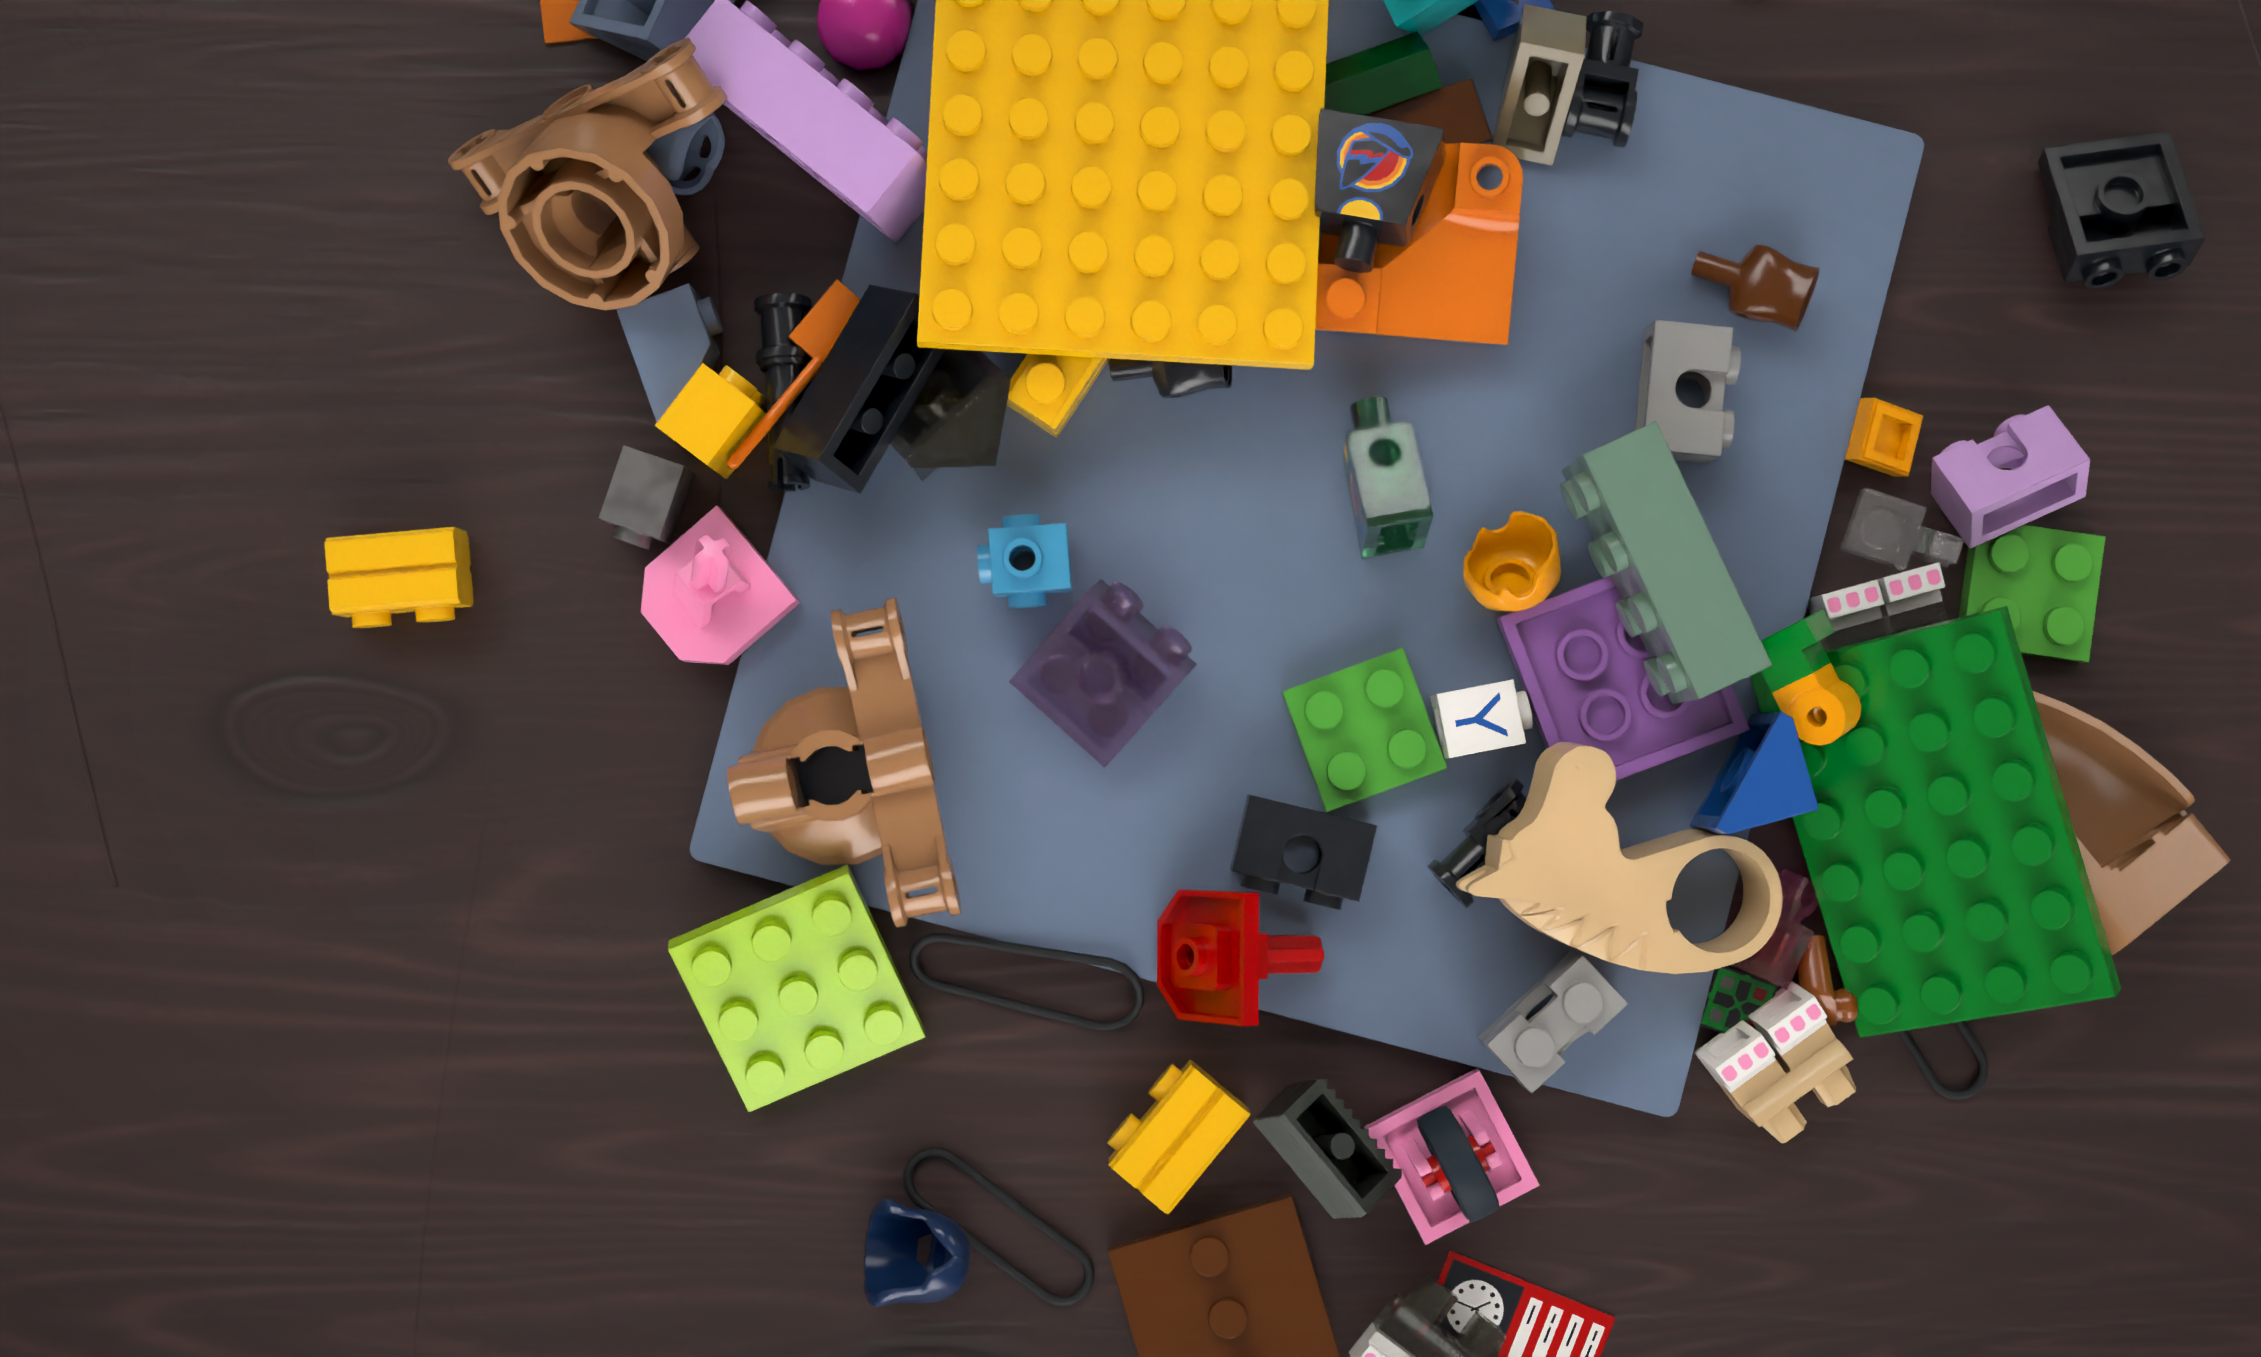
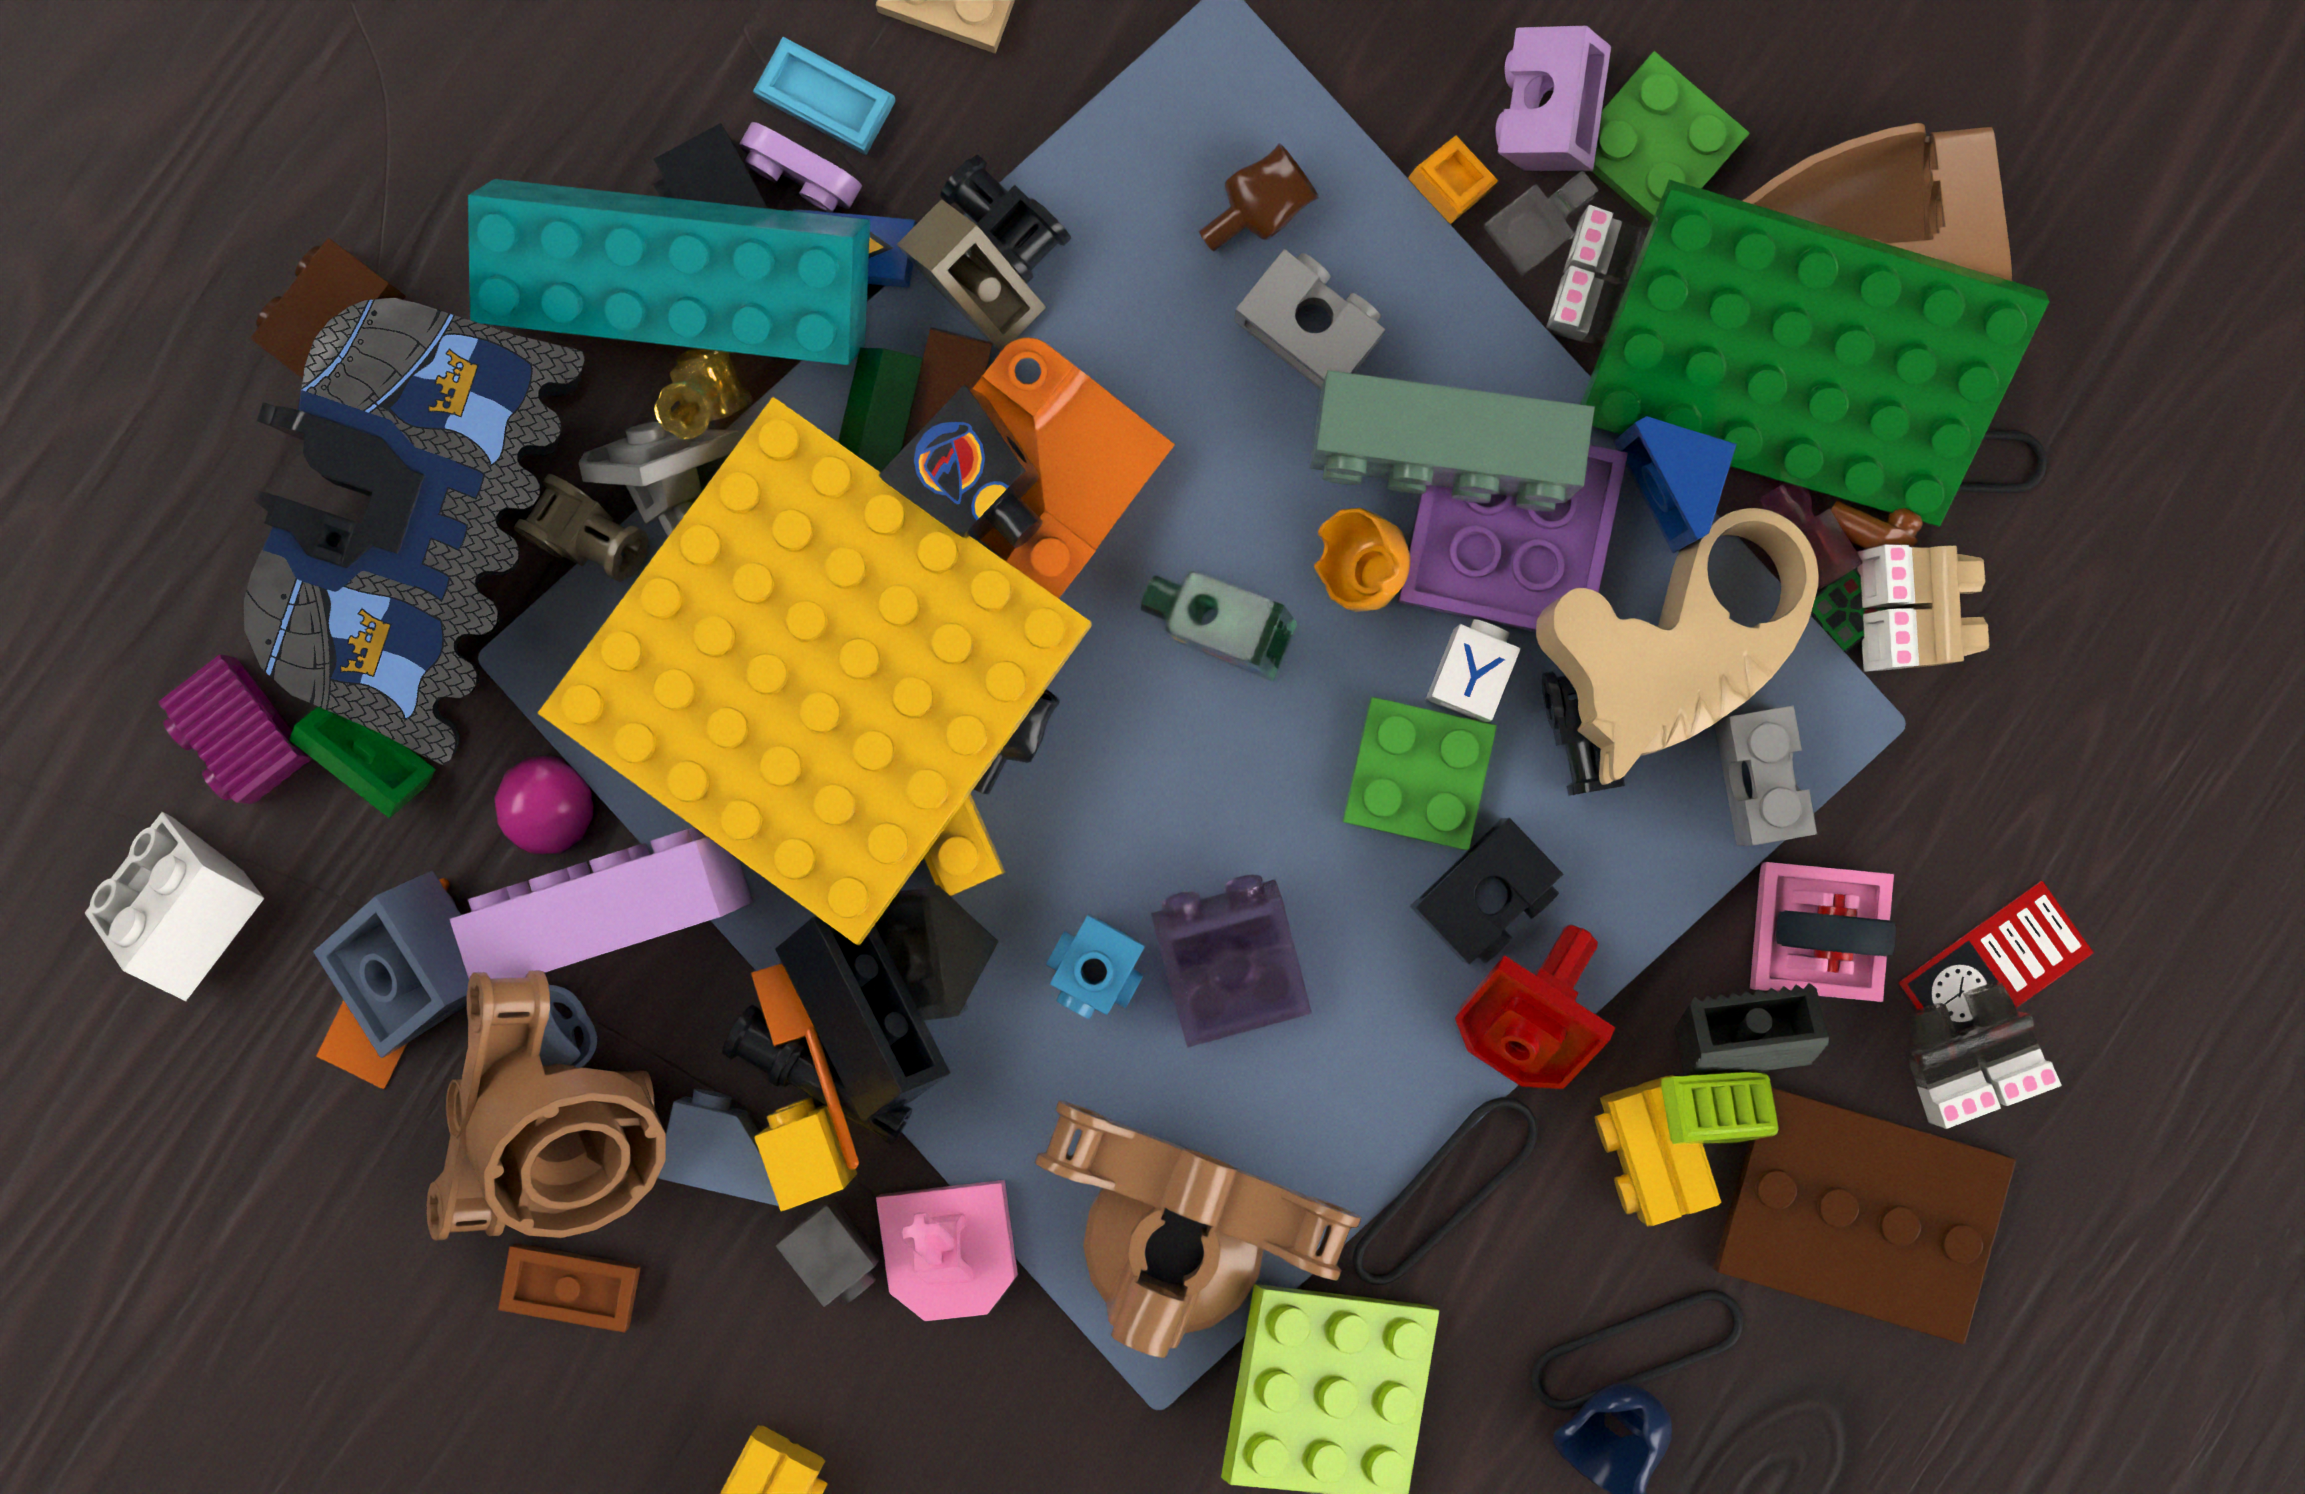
camera: 60 degrees left, 0 degrees up
(479, 300) = (569, 1287): none -> dark orange plate
(1251, 1166) = (1726, 1107): none -> lime slope
(1807, 682) = (1623, 383): leg -> none

